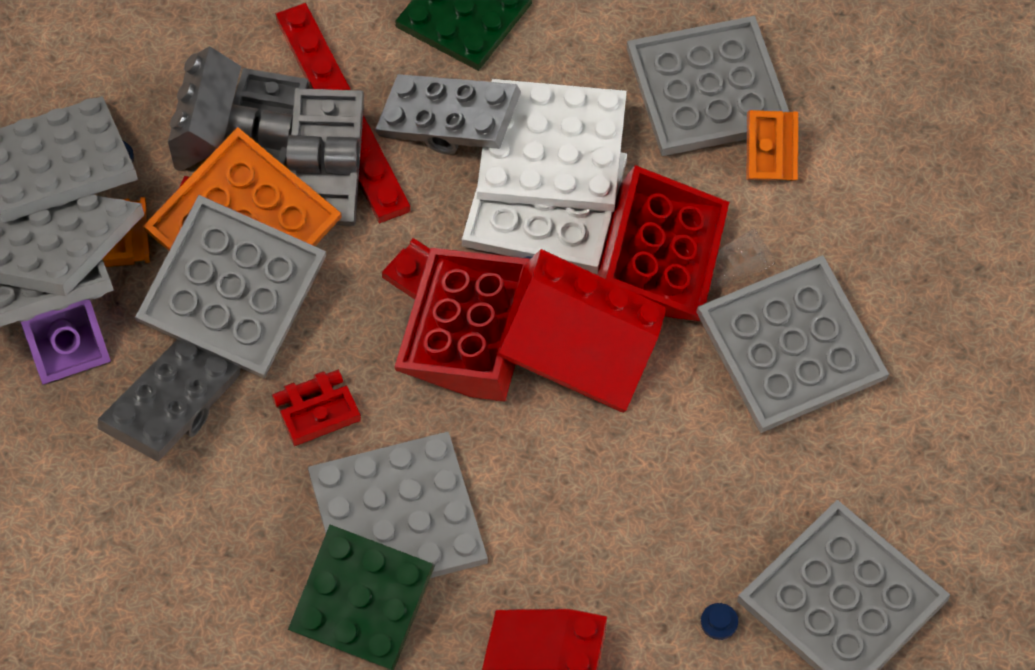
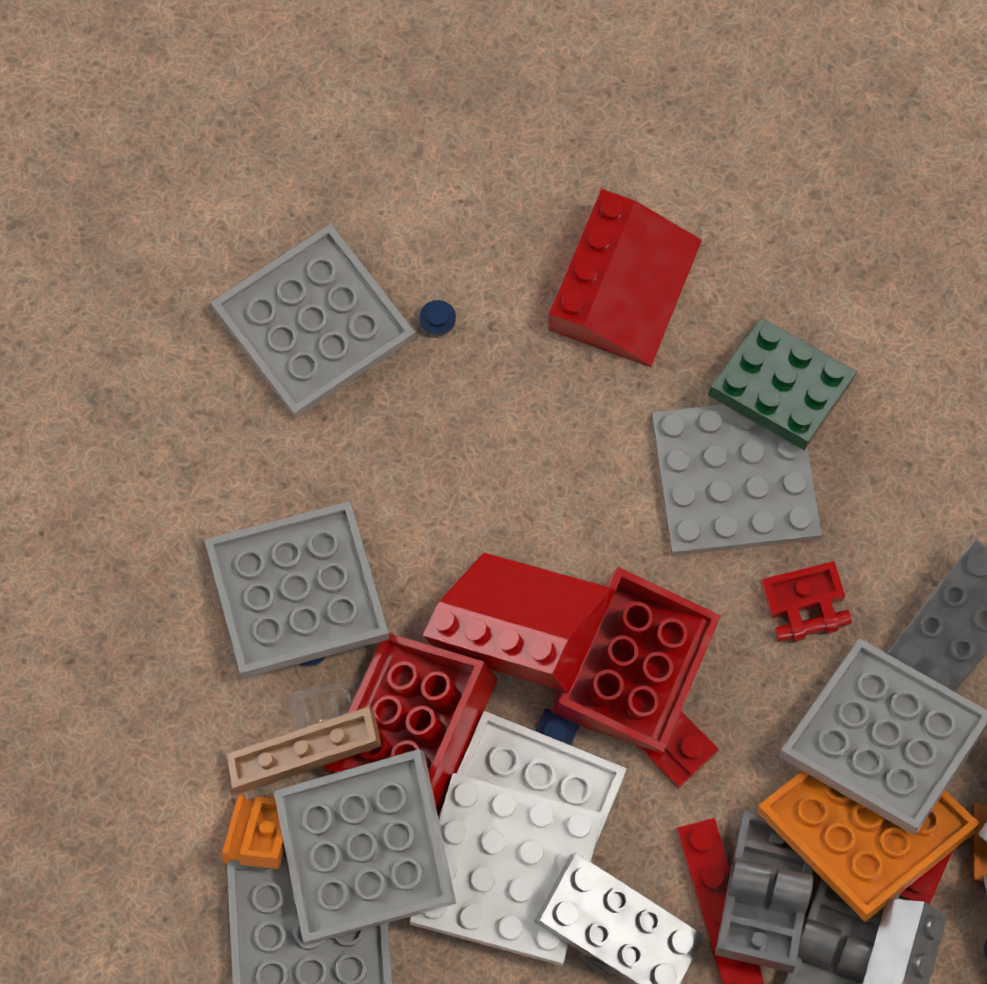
camera: 170 degrees left, 10 degrees up
(677, 126) = (364, 847): none -> light grey plate
(749, 208) = (303, 749): none -> medium nougat plate

